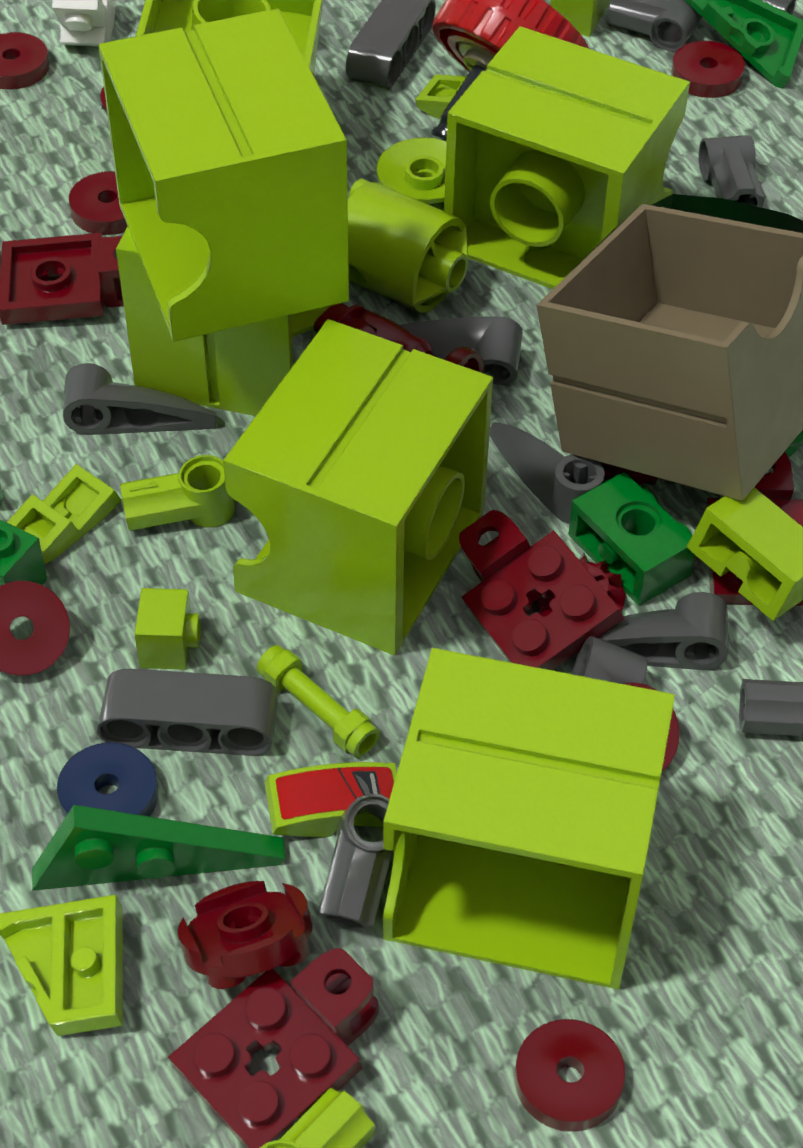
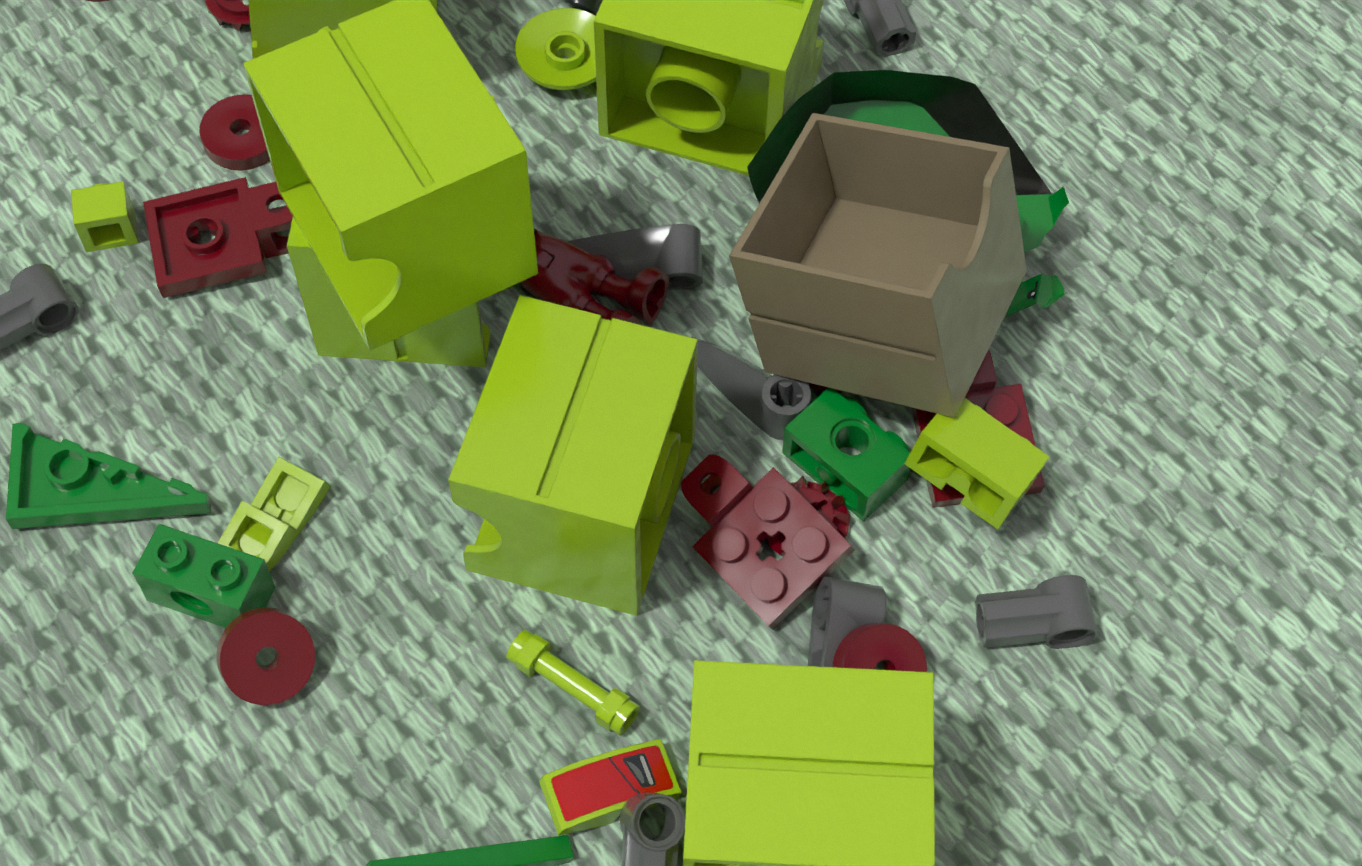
camera: 10 degrees left, 10 degrees up
(105, 407) = (300, 380): dark grey piece -> none
(109, 765) = (380, 787): dark blue piece -> none
(166, 628) = (409, 630): lime plate -> none
(189, 712) = (450, 718): dark grey beam -> none
(192, 494) = (386, 477): lime piece -> none
(404, 246) = (573, 154): lime cylinder -> none
(681, 637) = (904, 554): dark grey piece -> none

